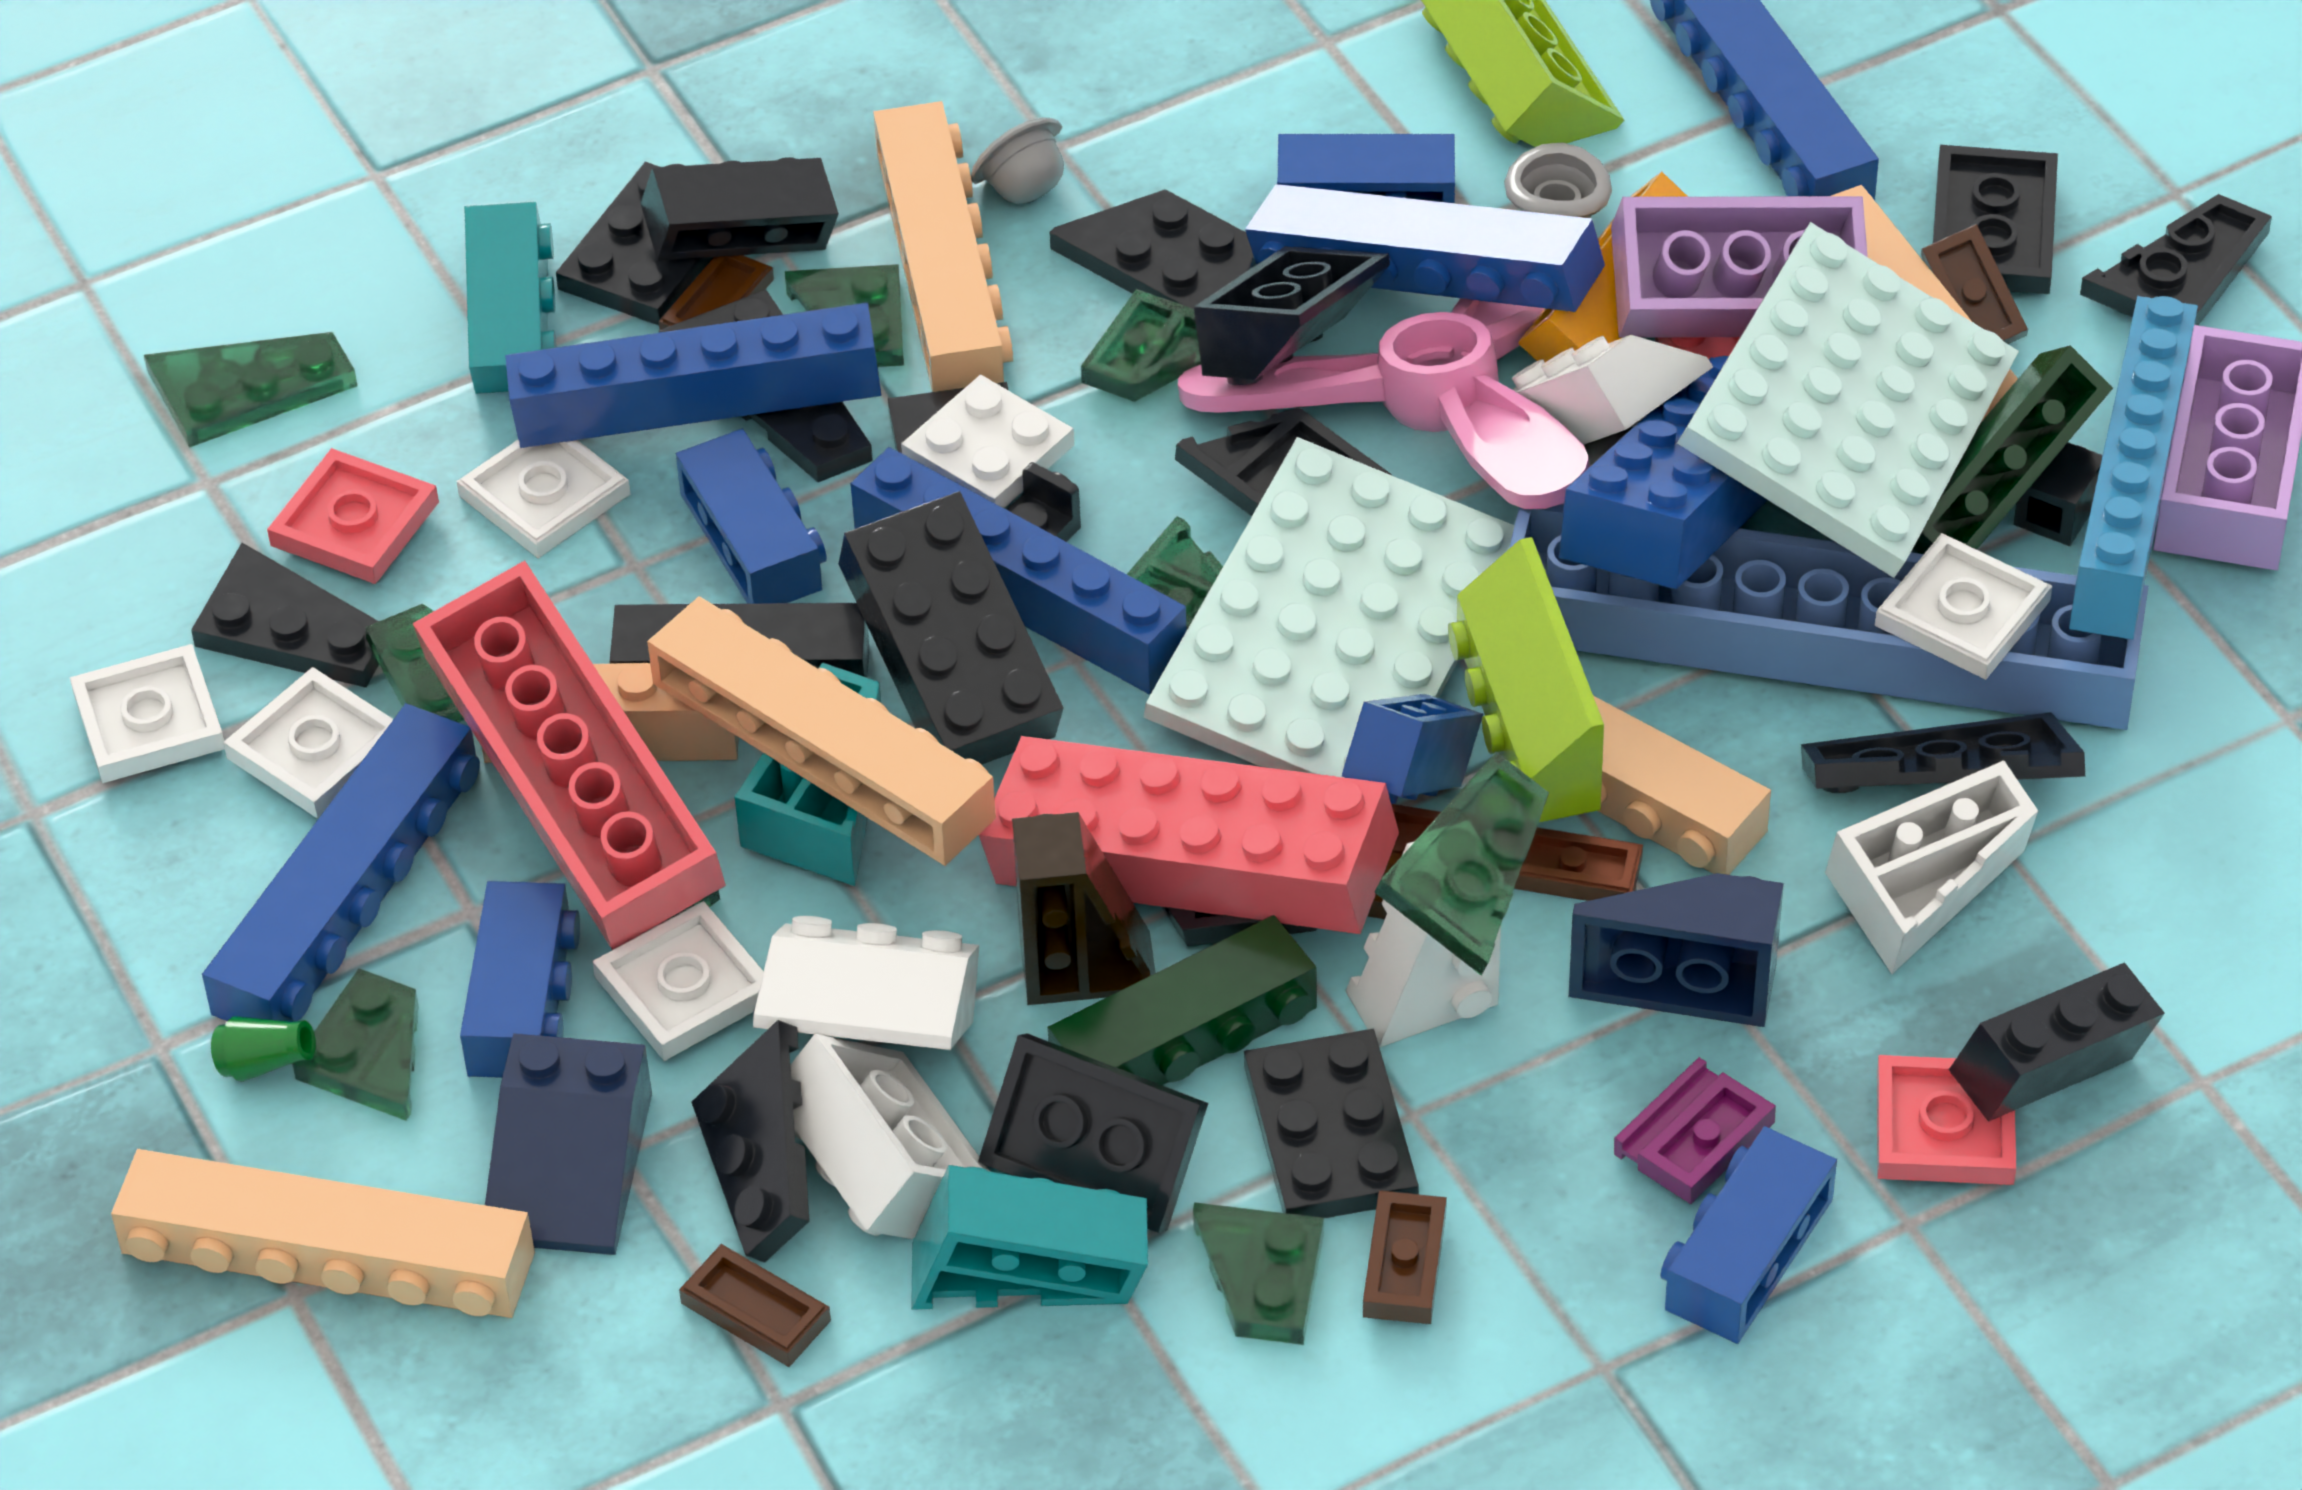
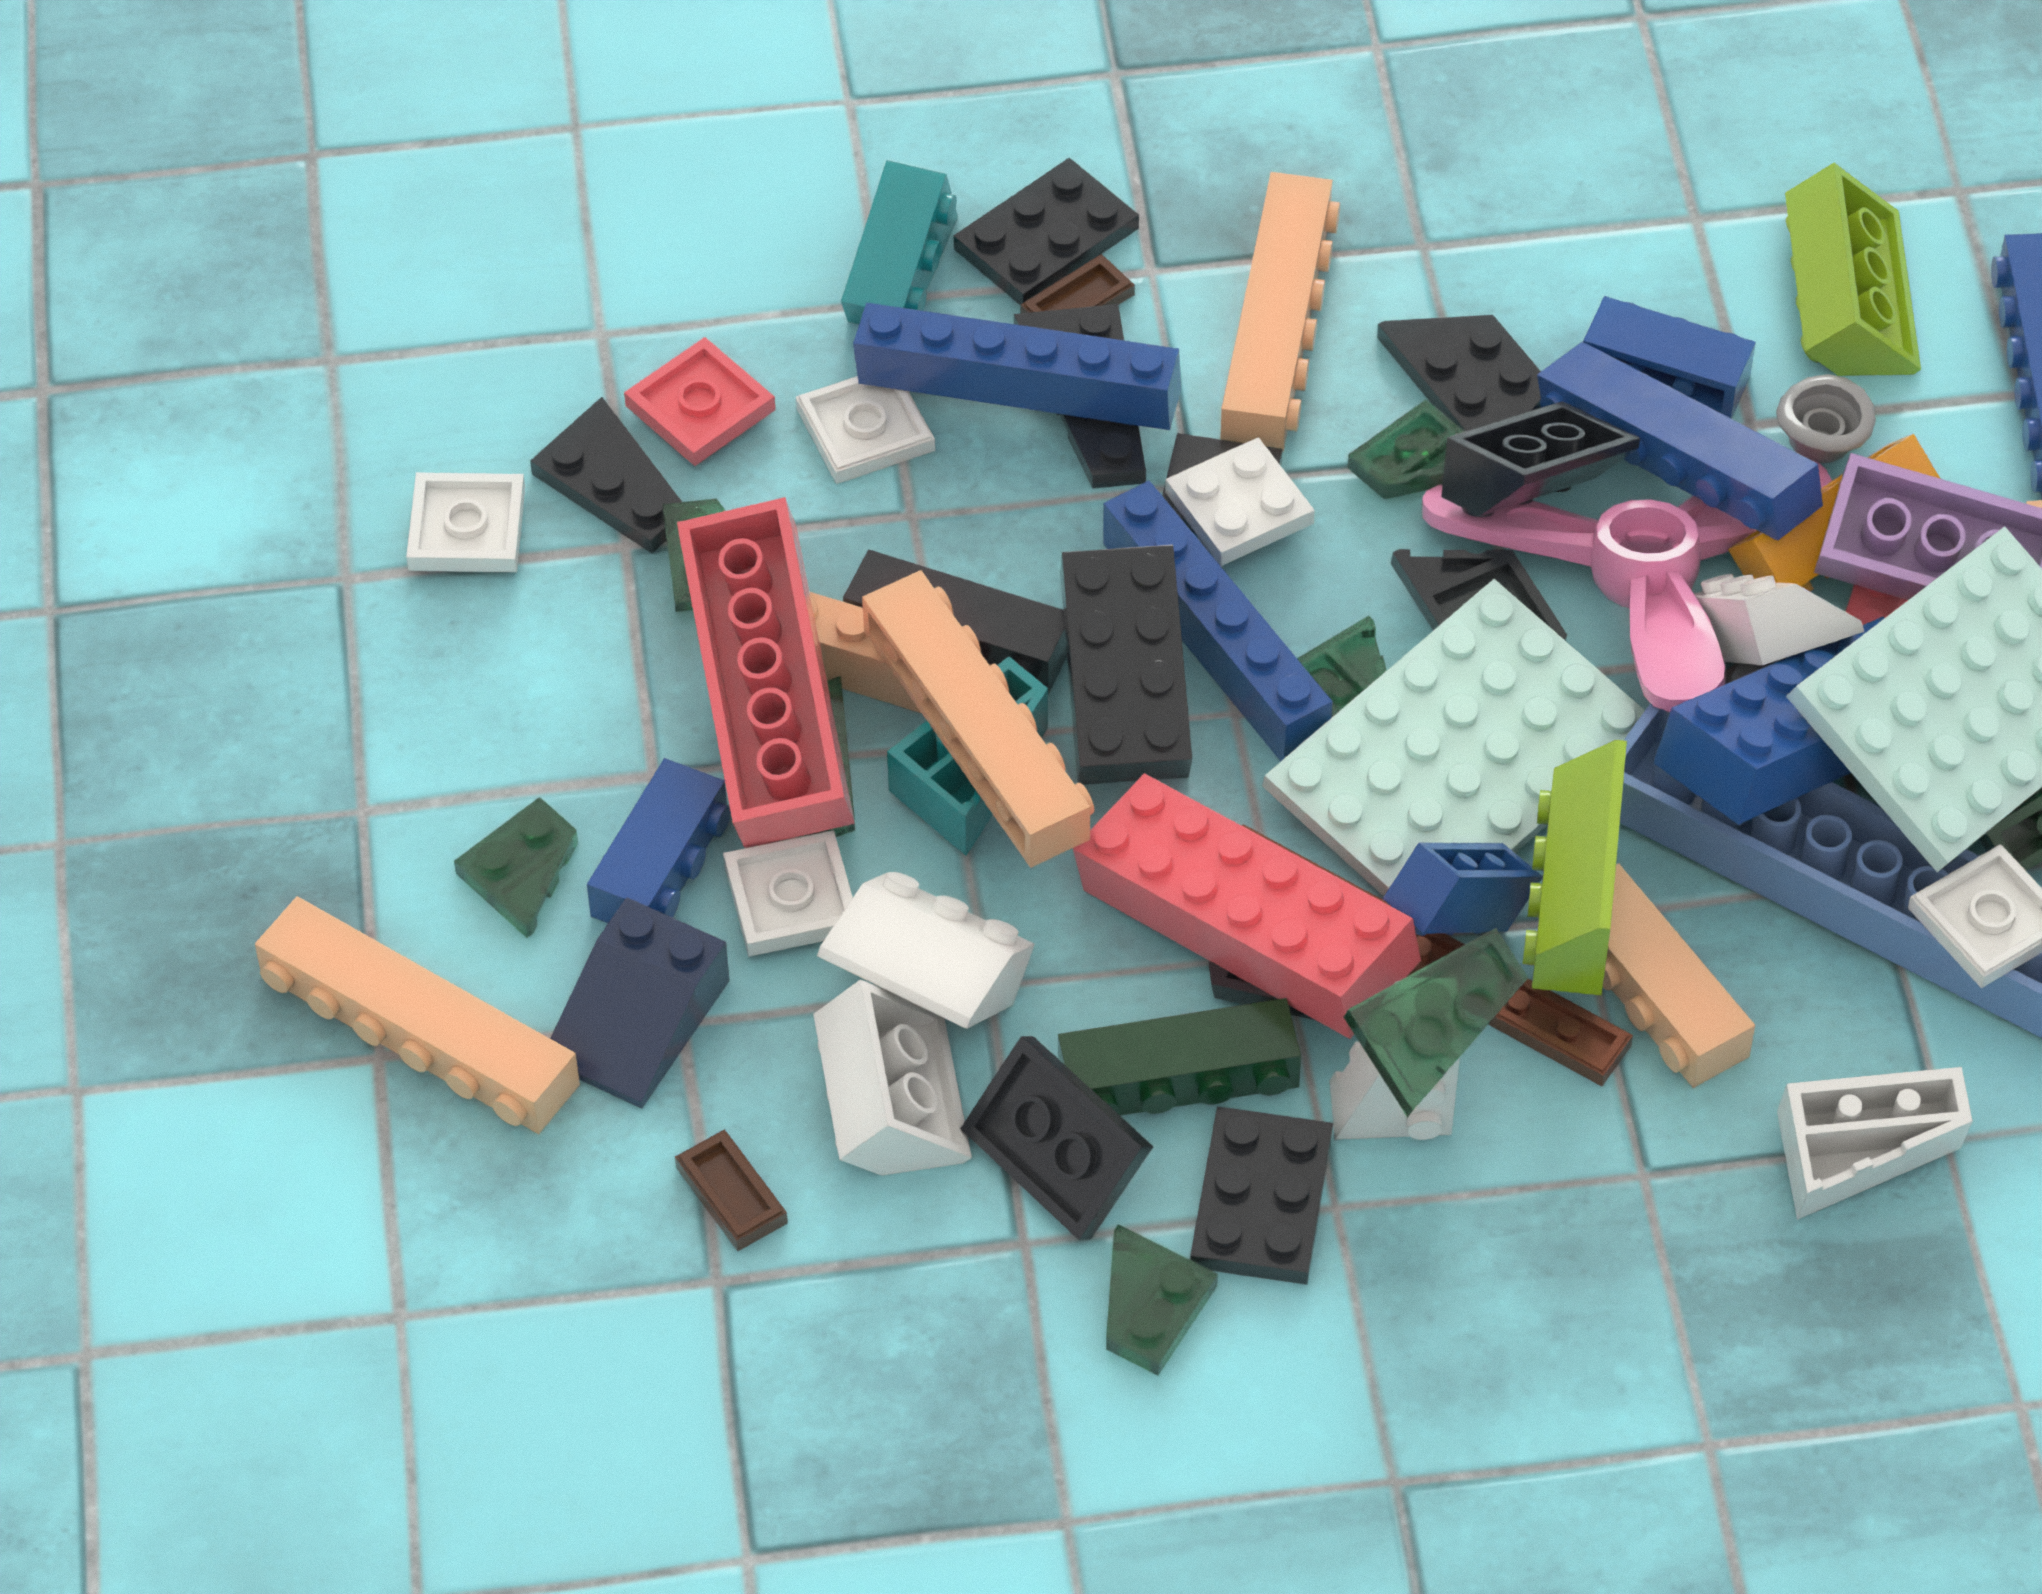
camera: 20 degrees right, 5 degrees up
(247, 382) = (667, 256): clear green wing -> none
(258, 1046) = (430, 838): green cone -> none
(308, 740) = (586, 590): white plate -> none
(343, 869) = (557, 711): blue brick -> none
(739, 208) = (1122, 226): black brick -> none
(750, 519) = (1017, 507): blue brick -> none
(753, 1144) = (780, 1056): black wing -> none
(857, 285) = (1200, 335): clear green wing -> none
(1022, 161) = (1379, 254): light grey hat -> none
(1027, 1237) = (967, 1212): teal wedge -> none
(1049, 502) = (1265, 574): black bracket -> none
(1074, 914) = (1119, 945): dark brown wedge -> none
(1404, 1257) = (1269, 1330): reddish brown plate -> none
(1681, 948) = (1617, 1141): dark blue slope -> none
(1694, 1130) = (1560, 1302): magenta plate -> none
(1748, 1233) = (1563, 1409): blue brick -> none
(1934, 1128) = (1777, 1366): coral plate -> none
(2029, 745) = (1989, 1053): black wing -> none
(2056, 1041) = (1895, 1331): black brick -> none

